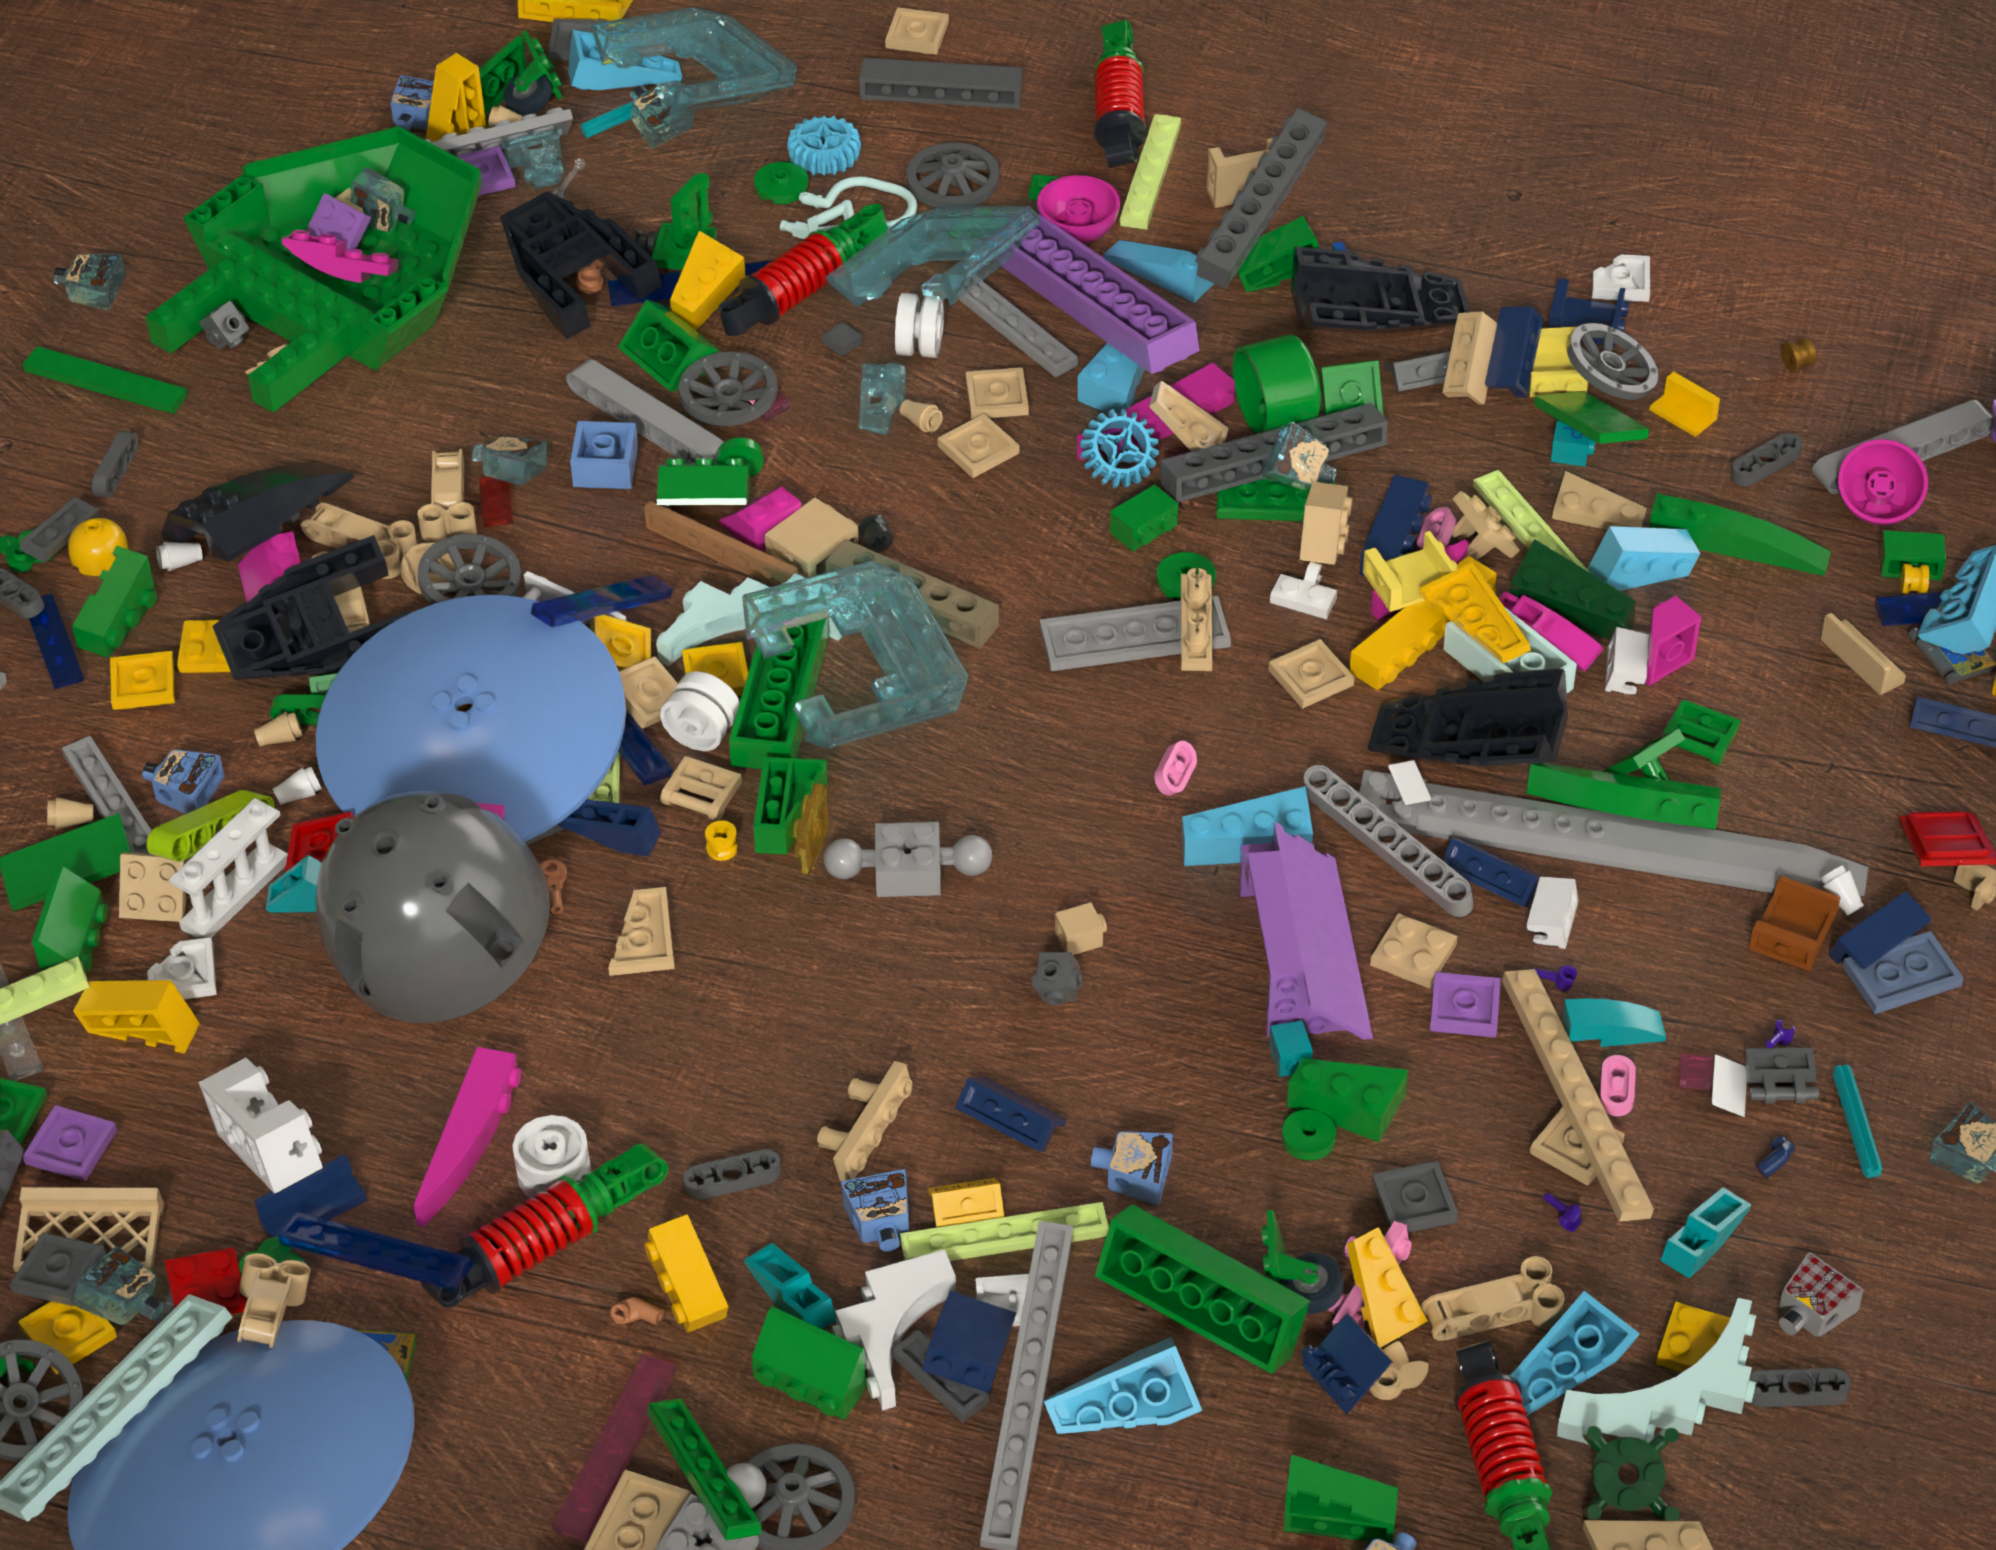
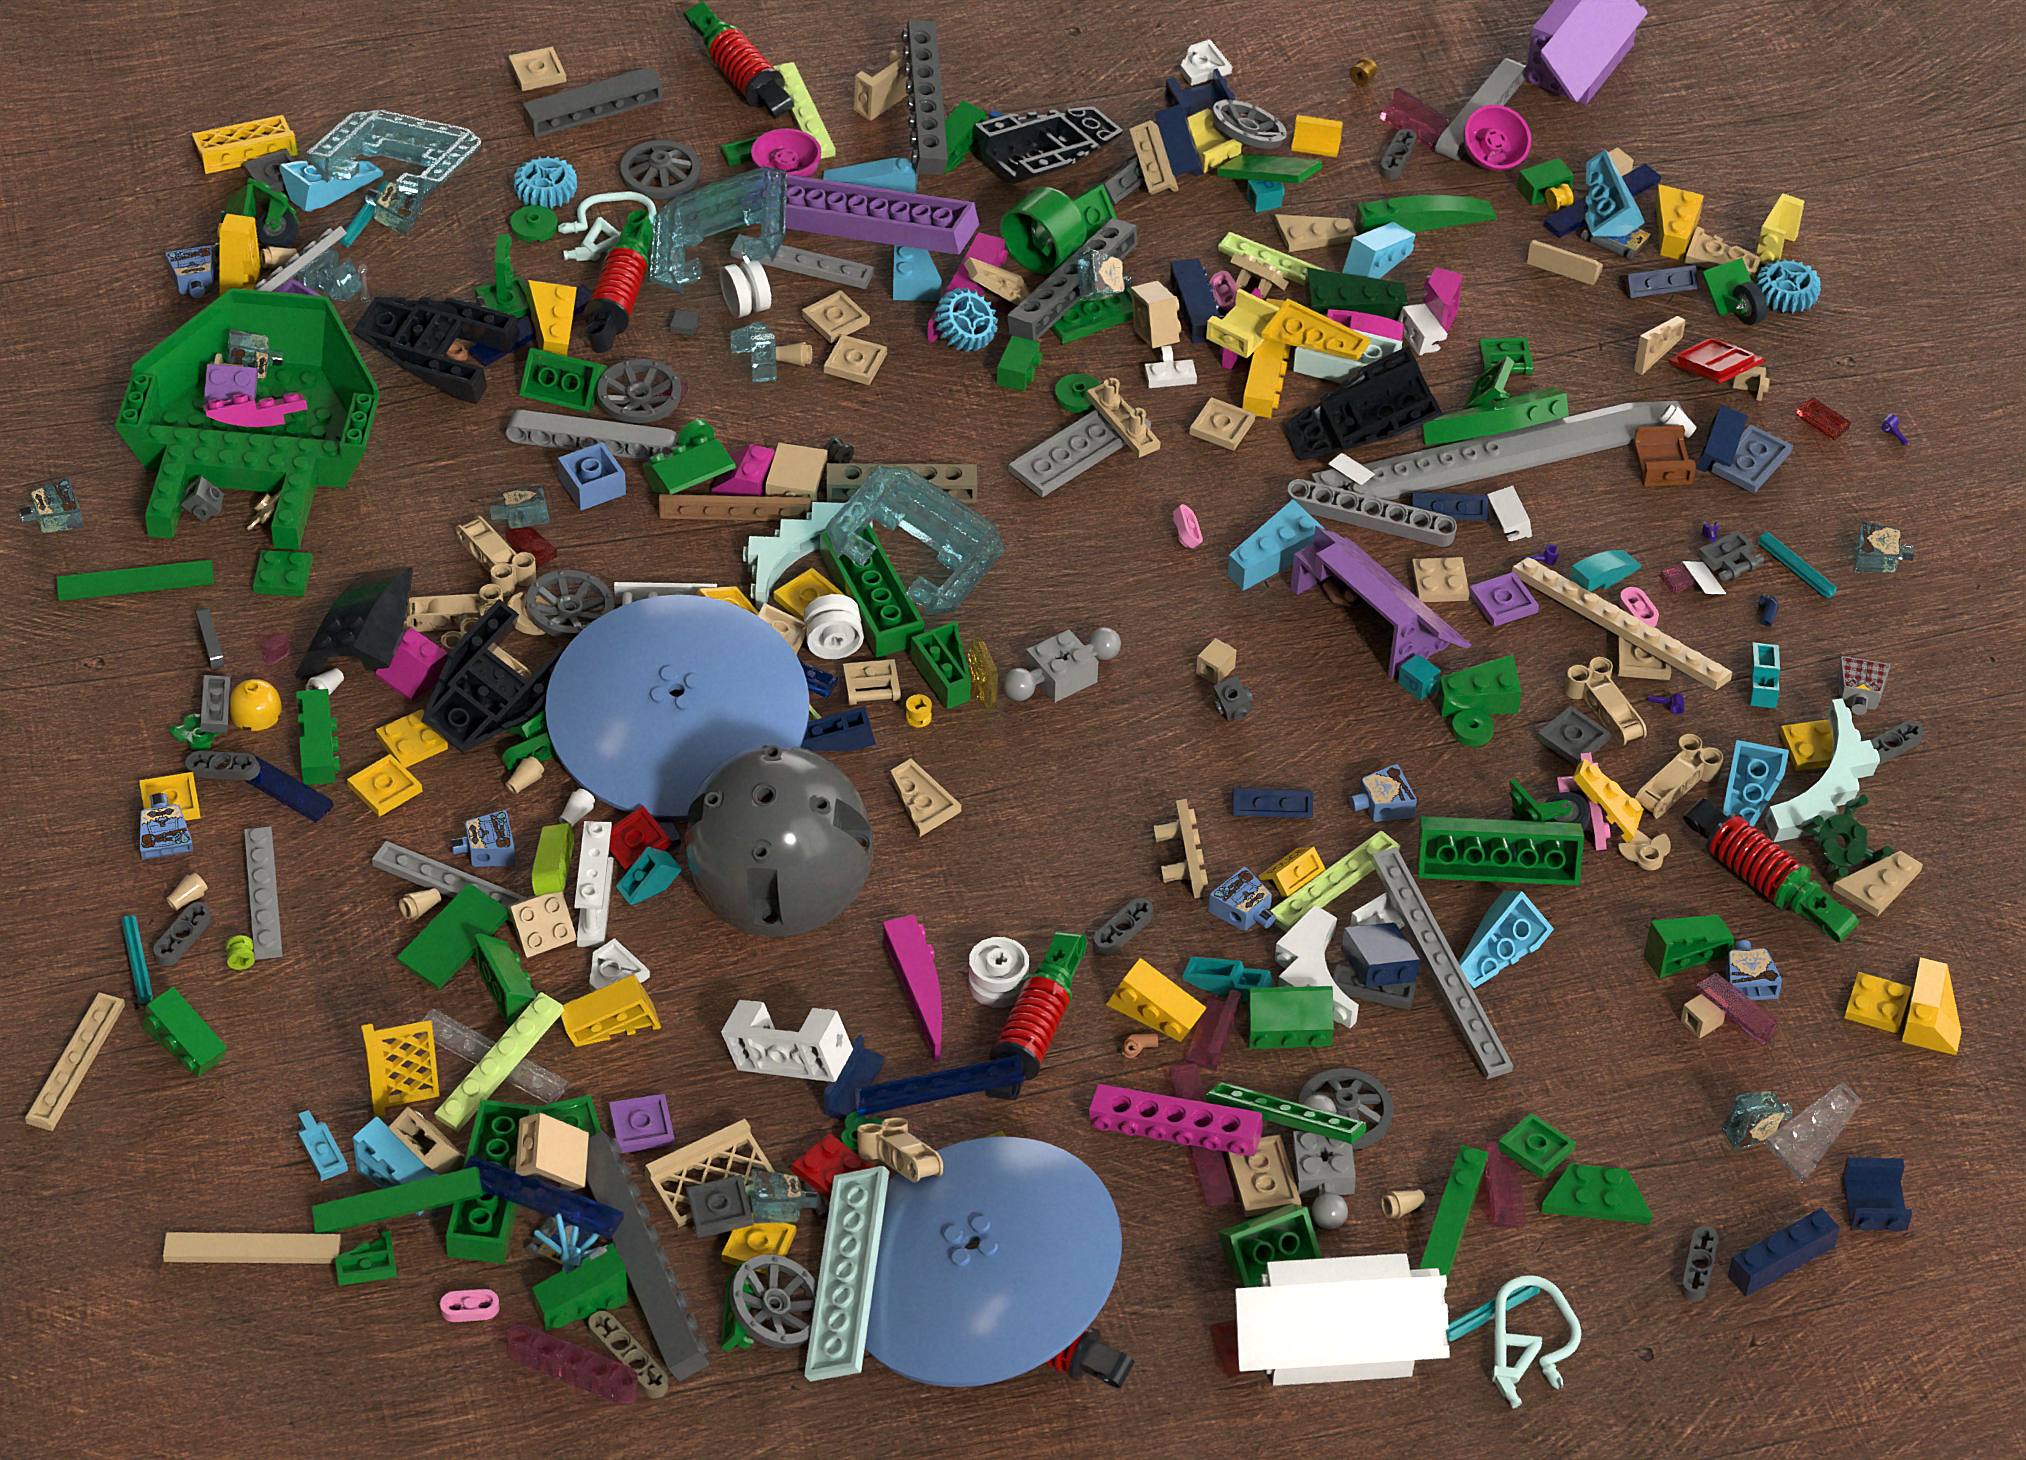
camera: 35 degrees left, 0 degrees up
(163, 499) = (276, 649): none -> clear pink tile
(241, 430) = (283, 573): none -> green plate
(589, 1417) = (1176, 1120): none -> dark pink brick
(601, 601) = (698, 578): clear blue tile -> none
(723, 1341) = (1213, 1031): none -> clear pink panel
(1346, 1363) = (1621, 856): dark blue hinge -> none
(1486, 1152) = (1605, 699): none -> tan piece
(1814, 425) = (1413, 114): none -> clear pink panel
(1892, 789) = (1657, 342): none -> tan wing

